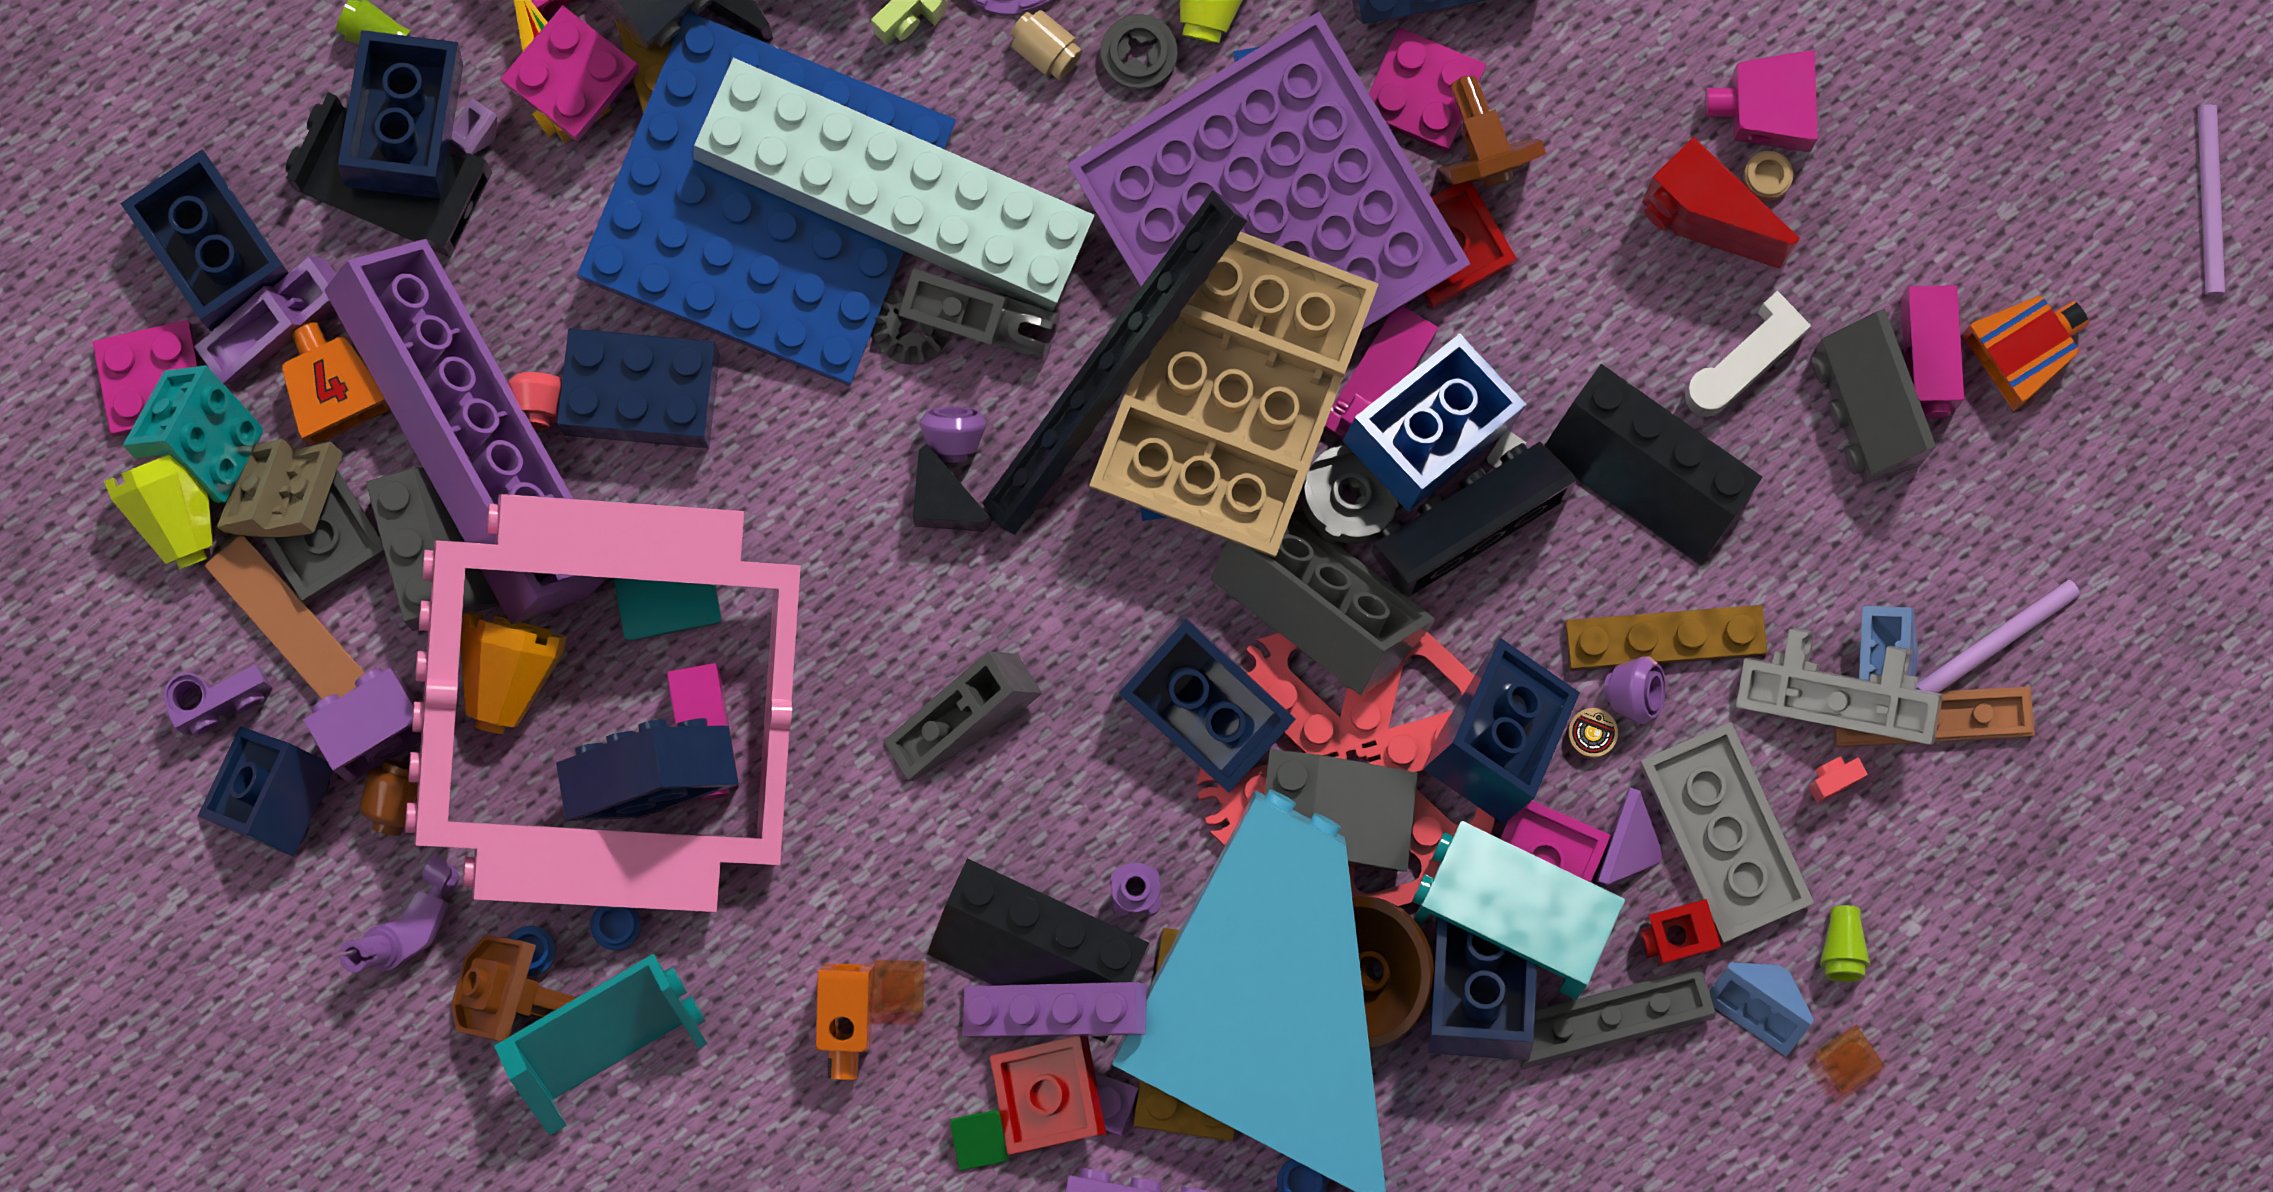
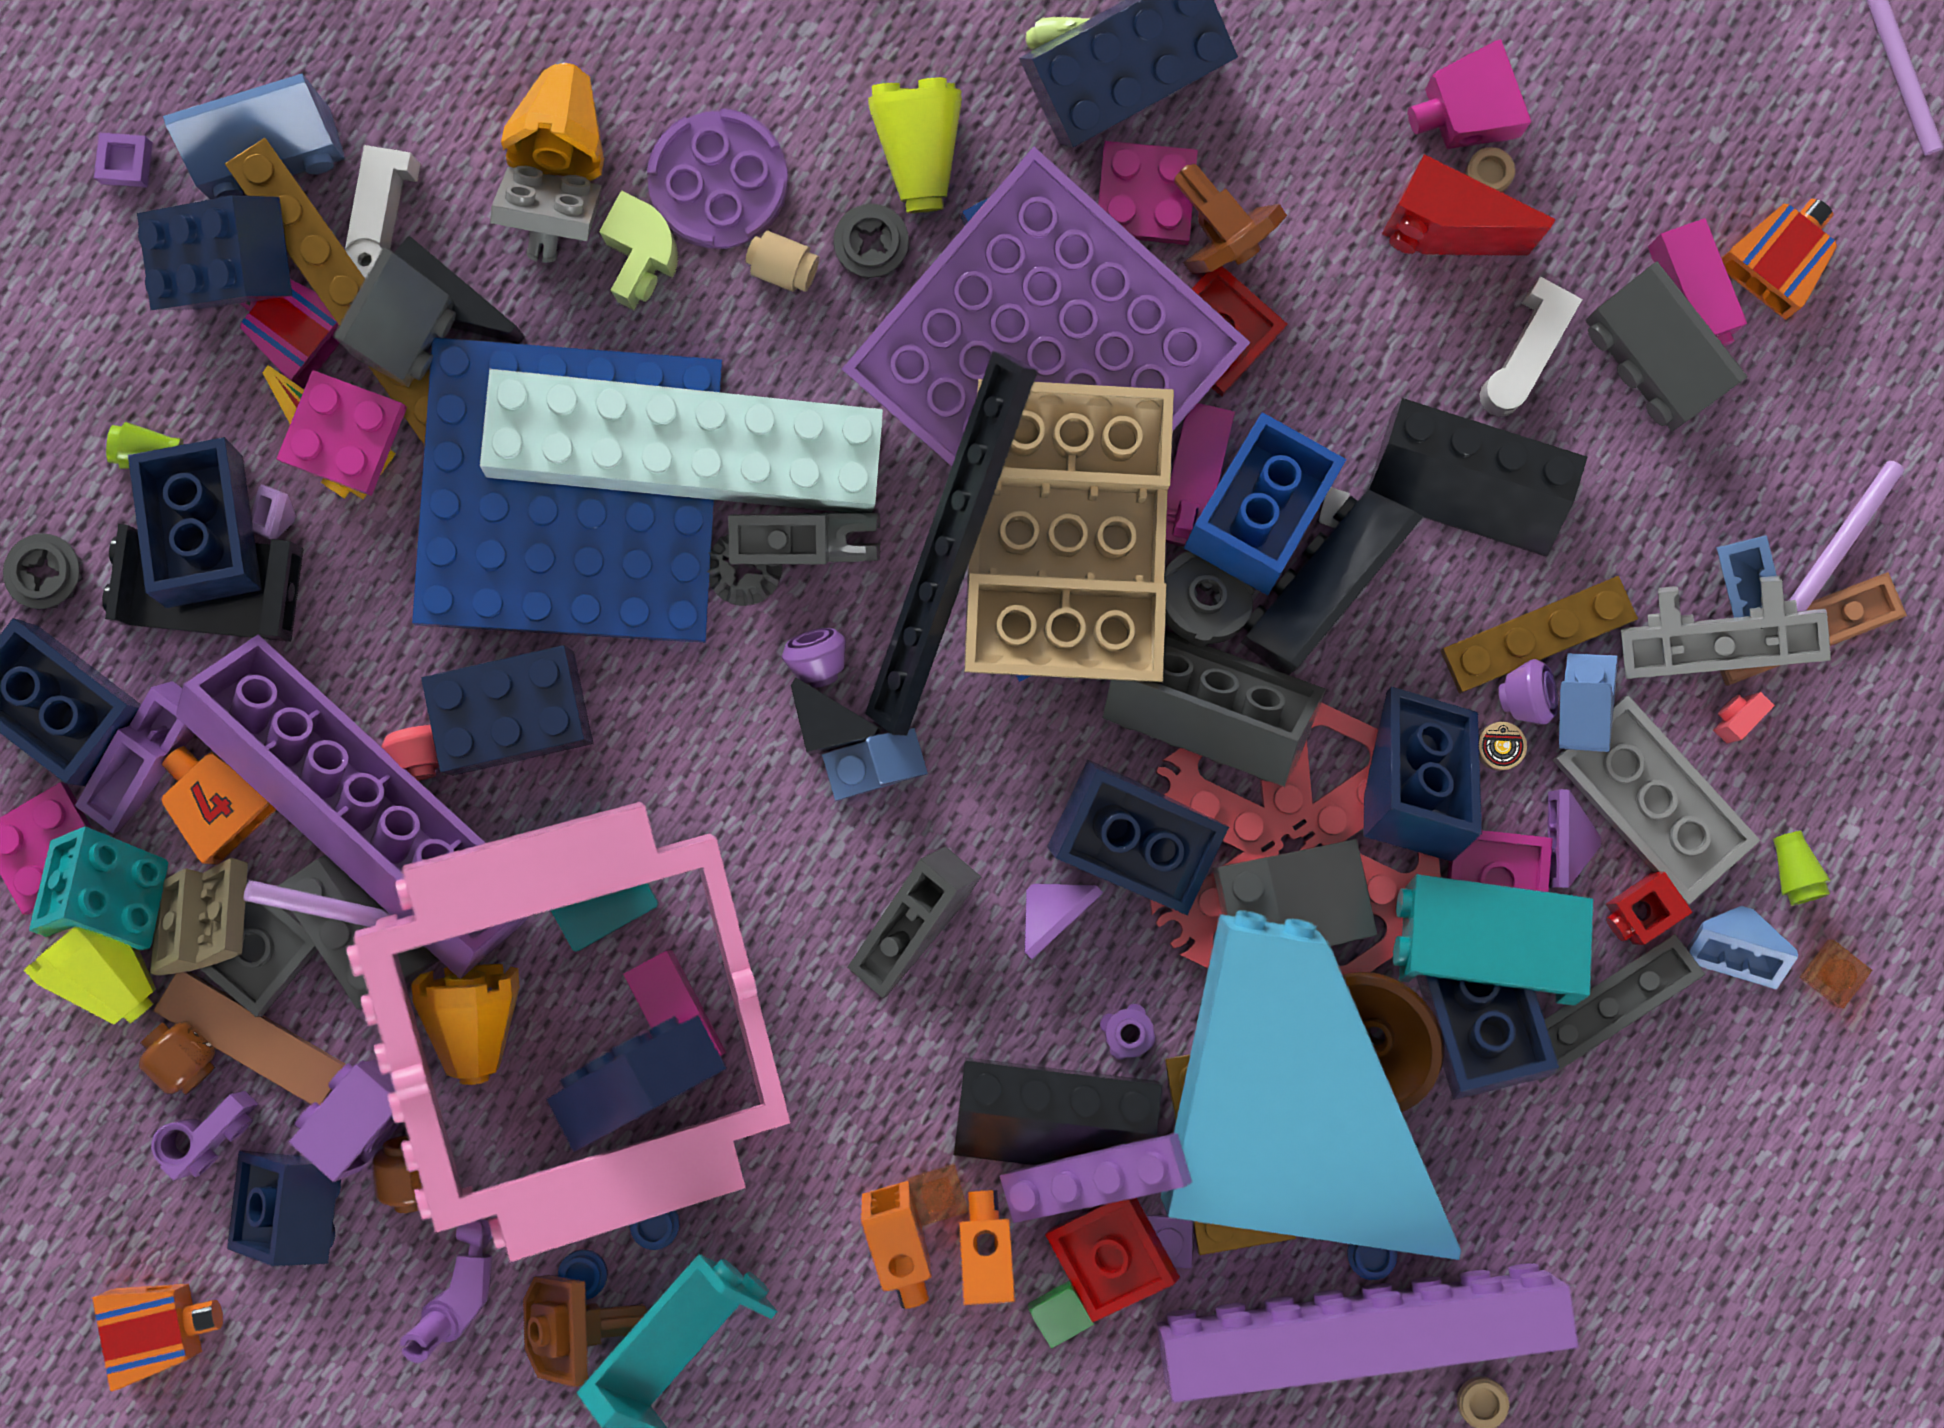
camera: 15 degrees left, 5 degrees up
(103, 866) = (150, 1329): none -> torso
(213, 616) = (176, 1057): none -> dark orange head
(231, 94) = (32, 553): none -> dark grey gear
(398, 505) = (313, 904): none -> lavender bar
(921, 1069) = (986, 1277): none -> orange torso
(975, 554) = (874, 764): none -> medium blue slope
(1100, 749) = (1051, 910): none -> medium lavender slope
(1687, 715) = (1587, 702): none -> medium blue slope

